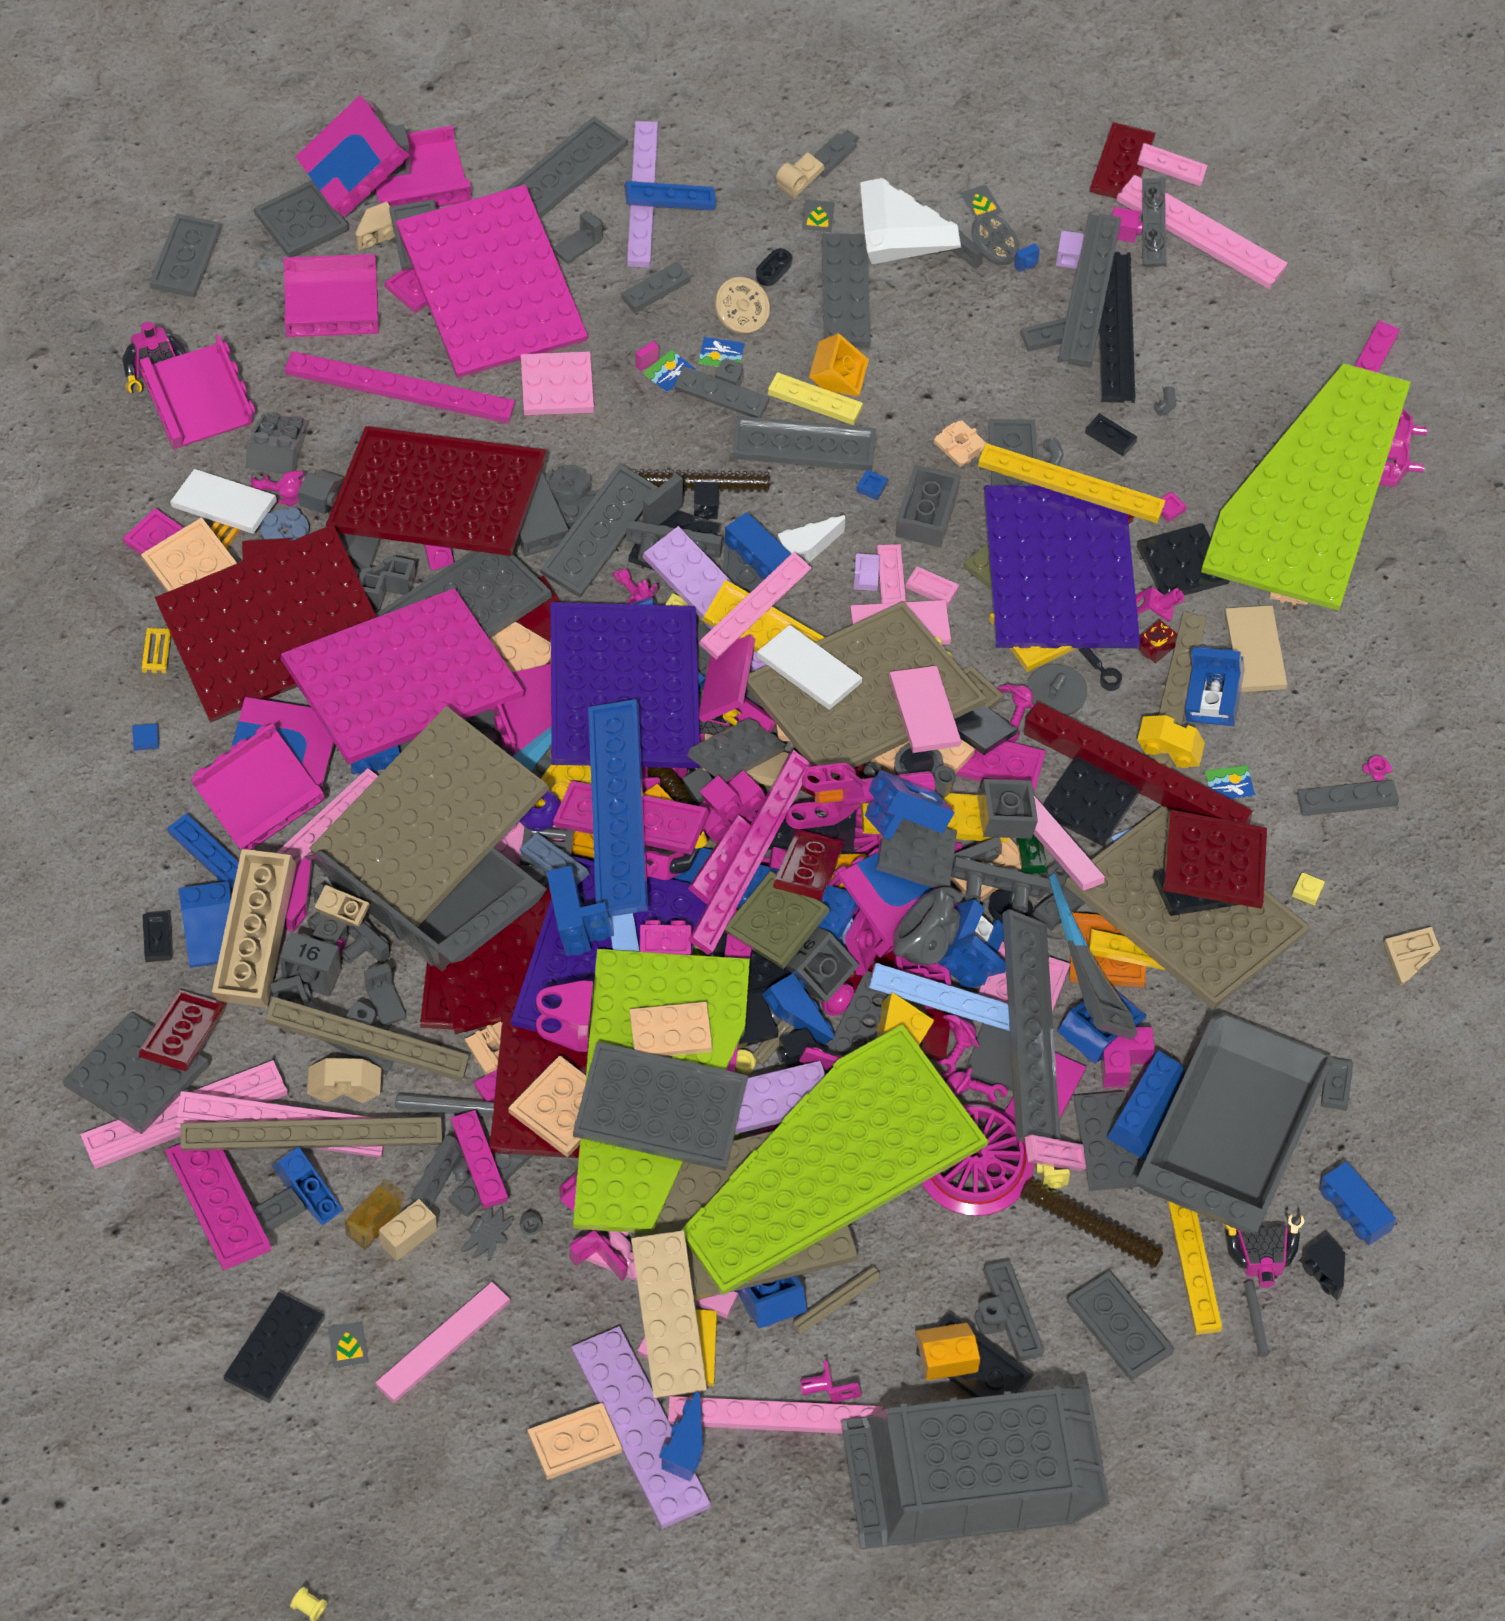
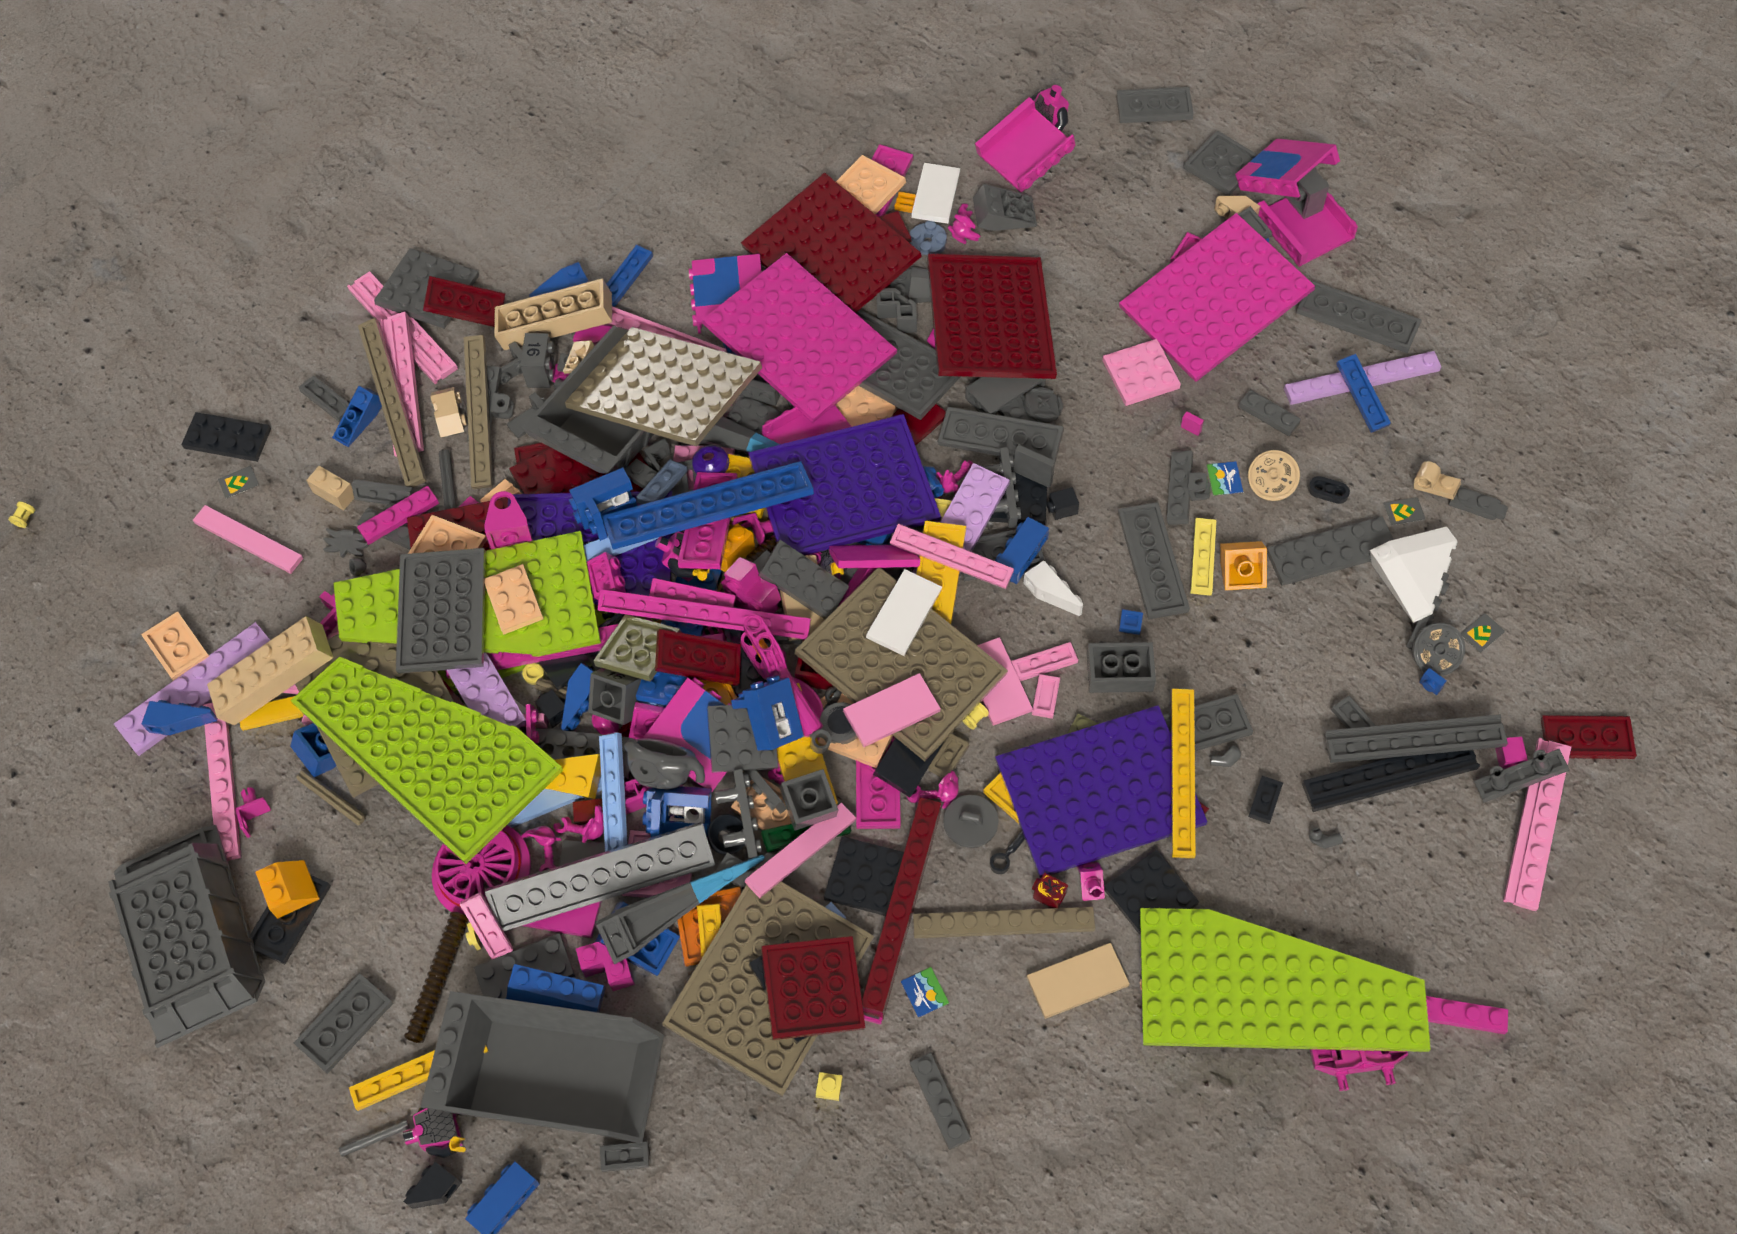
camera: 80 degrees right, 5 degrees up
(145, 737) = (714, 211): blue tile -> none
(155, 666) = (790, 191): yellow tile -> none
(156, 937) = (544, 267): black plate -> none
(219, 1205) = (320, 368): dark pink plate -> none
(257, 788) = (681, 284): dark pink panel -> none
(319, 491) = (960, 241): dark grey brick -> none
(330, 295) = (1158, 204): dark pink panel -> none
(370, 1216) = (335, 461): clear yellow brick -> none
(400, 387) = (1092, 273): dark pink plate -> none
(582, 240) = (1289, 347): dark grey bracket -> none
(667, 370) = (1190, 442): sticker -> none
(730, 481) = (1087, 505): dark brown piece -> none
(866, 572) = (1035, 638): lavender panel -> none
(960, 453) = (1201, 669): light nougat piece -> none
(1008, 1311) = (339, 930): dark grey plate -> none
(1069, 249) = (1458, 709): lavender panel -> none
(1163, 736) = (940, 925): yellow brick -> none
(1172, 164) = (1604, 779): bright pink tile -> none
(1173, 507) = (1208, 869): dark pink tile -> none
(1216, 669) = (1009, 942): blue brick -> none
(1377, 762) = (987, 1118): dark pink plate -> none
(1411, 952) = (783, 1195): tan wing -> none

